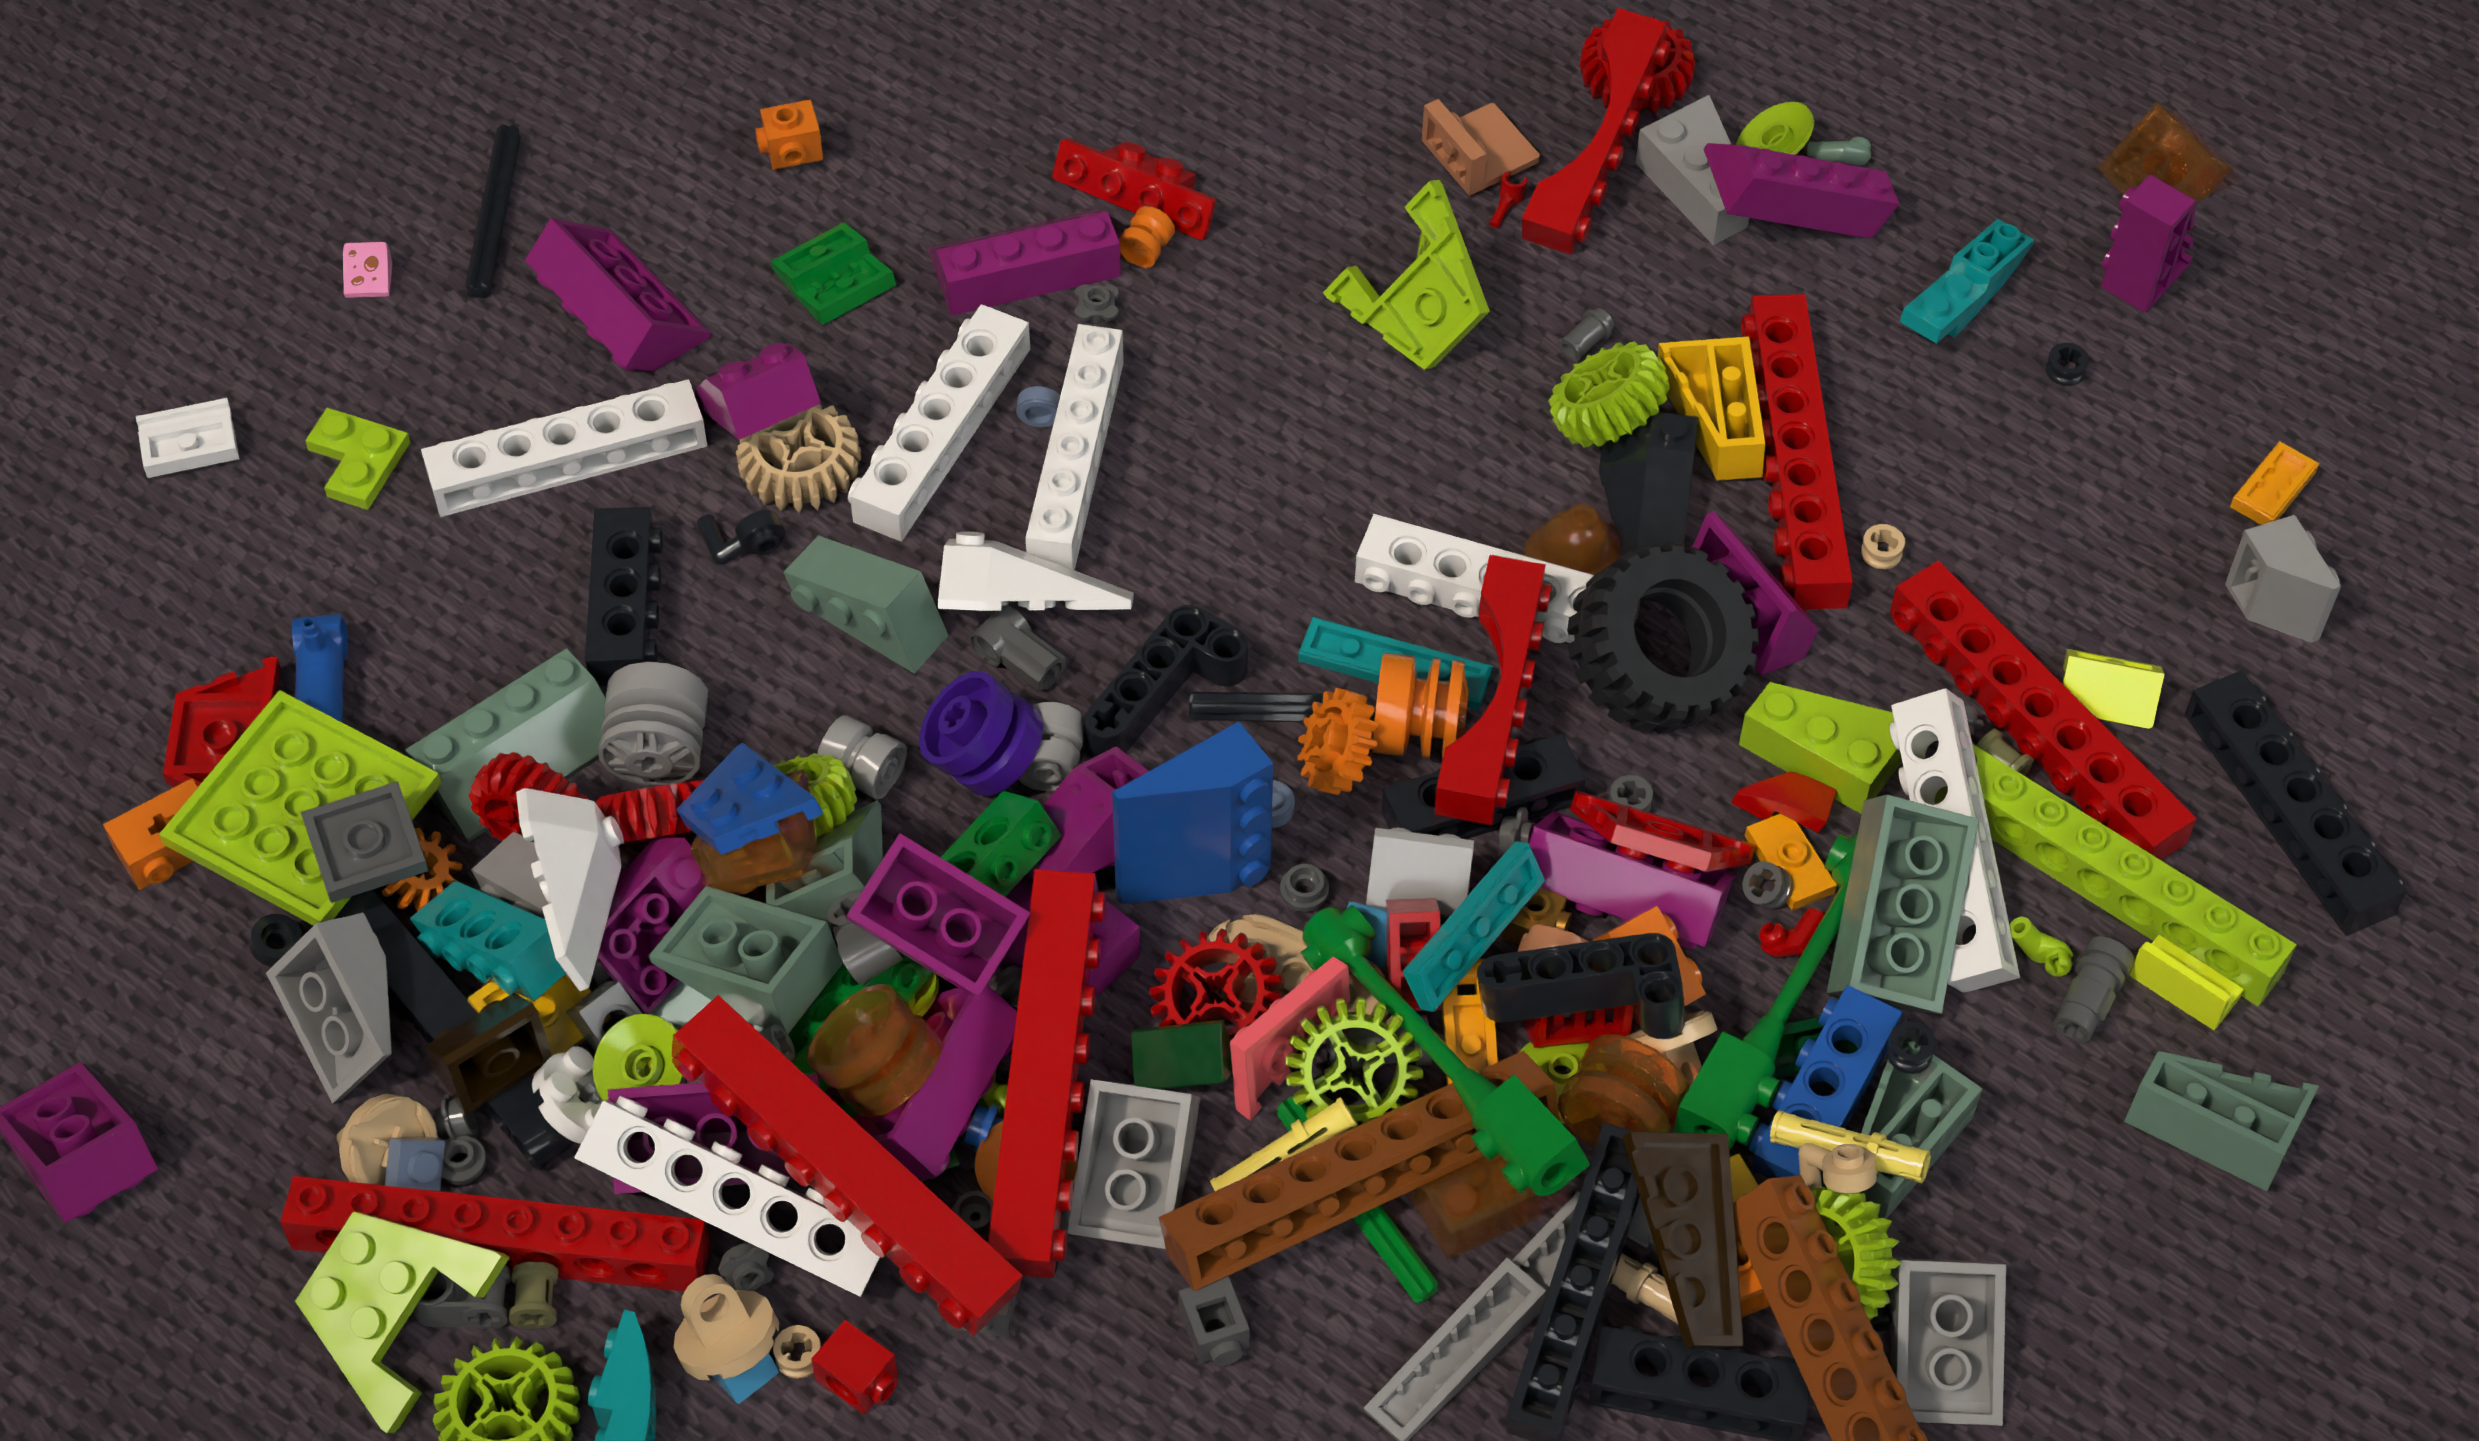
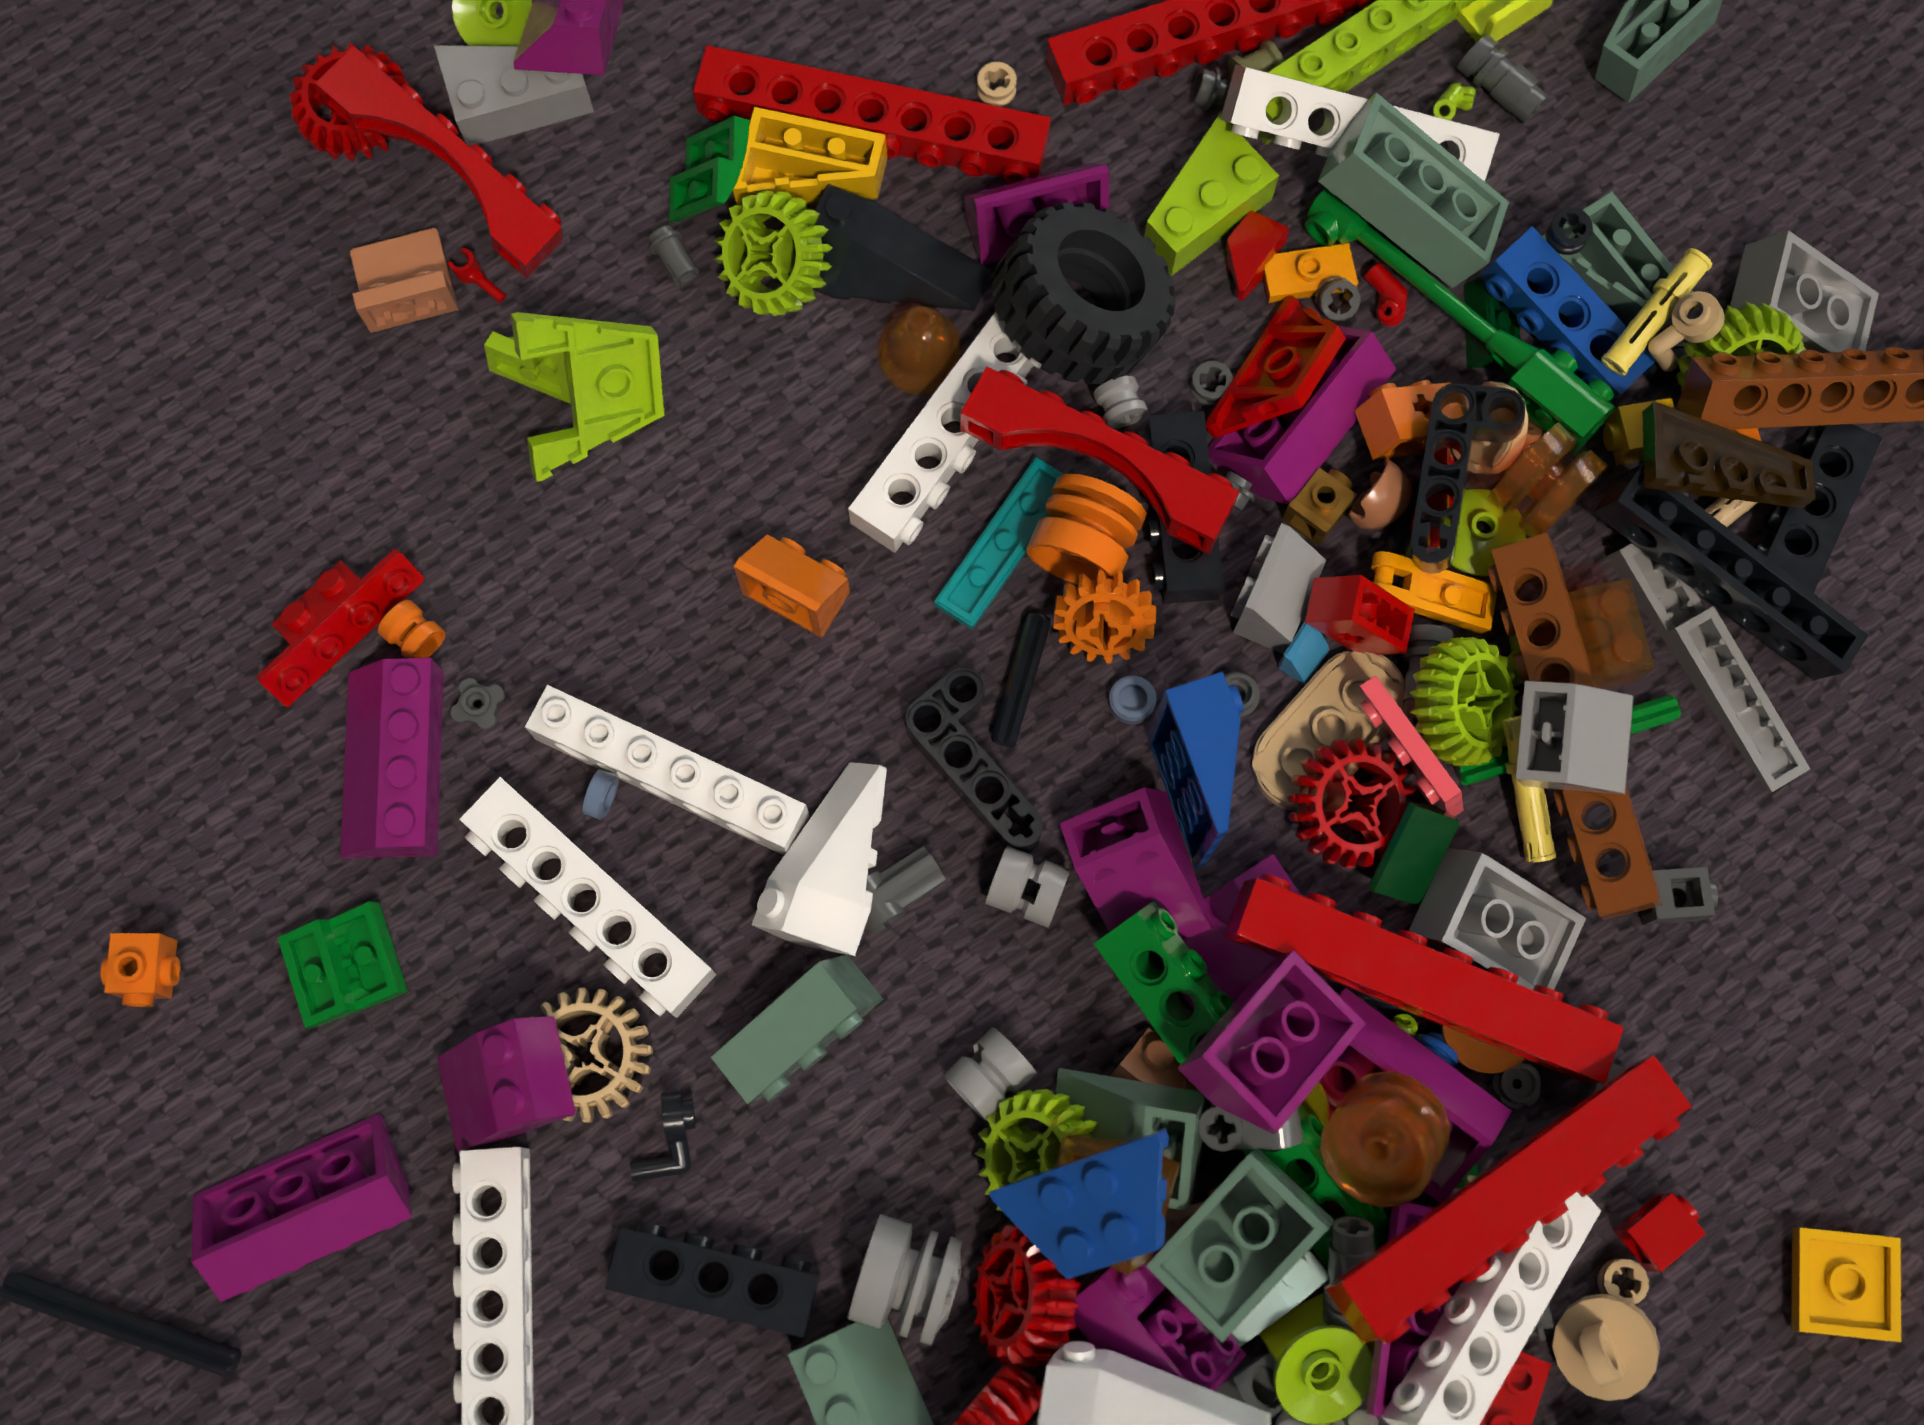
camera: 75 degrees left, 20 degrees up
(981, 733) = (1012, 950): dark purple wheel -> none
(1287, 492) = (792, 583): none -> orange slope
(1328, 1128) = (1574, 738): none -> light grey slope
(1474, 926) = (1362, 551): teal tile -> none
(1506, 1117) = (1599, 581): green bar -> none
(1576, 718) = (1120, 402): none -> light grey wheel
(1668, 328) = (711, 170): none -> green slope

